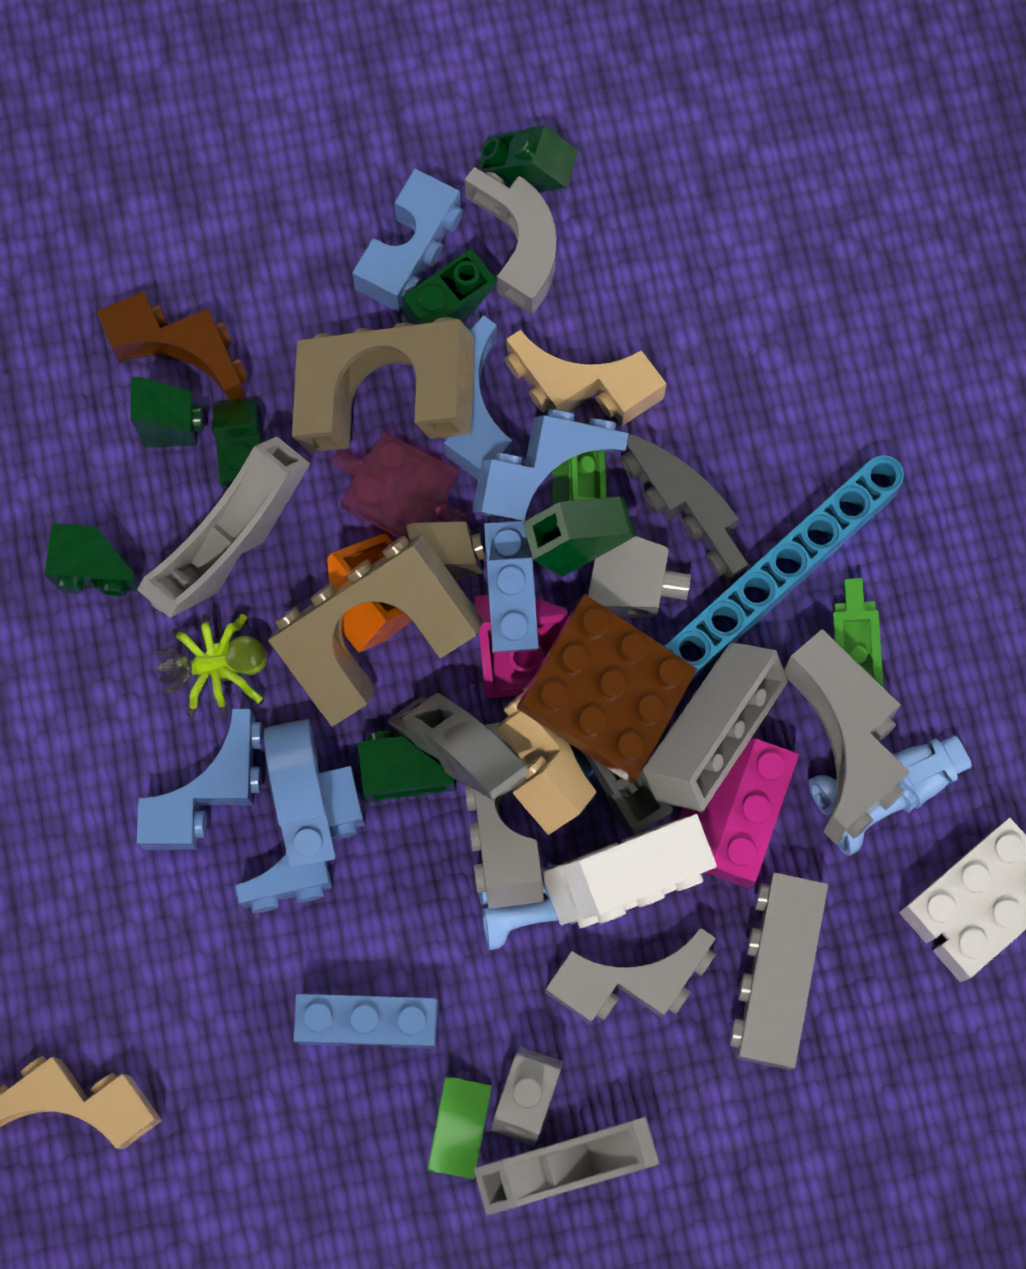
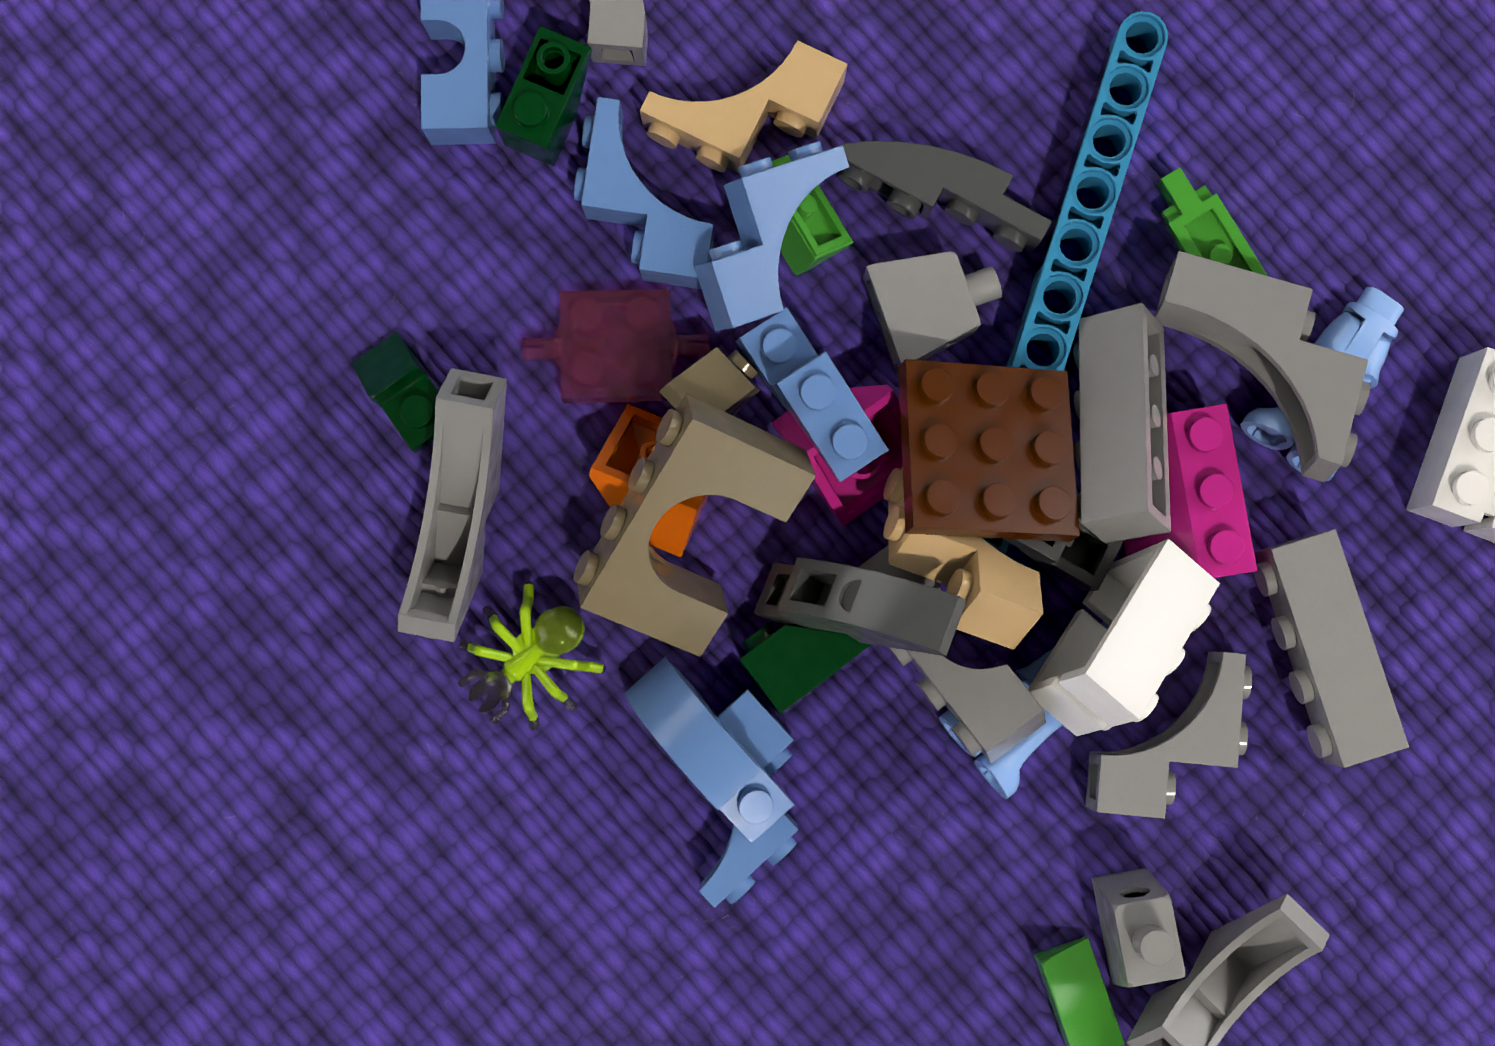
camera: 30 degrees left, 10 degrees up
(84, 559) = (314, 620): dark green slope -> none
(142, 331) = (220, 326): reddish brown arch -> none
(164, 414) = (305, 409): dark green slope -> none
(231, 780) = (623, 772): medium blue arch -> none
(335, 365) = (464, 247): dark tan arch -> none
(366, 1021) = (903, 965): medium blue arch -> none
(577, 532) = (852, 290): dark green slope -> none

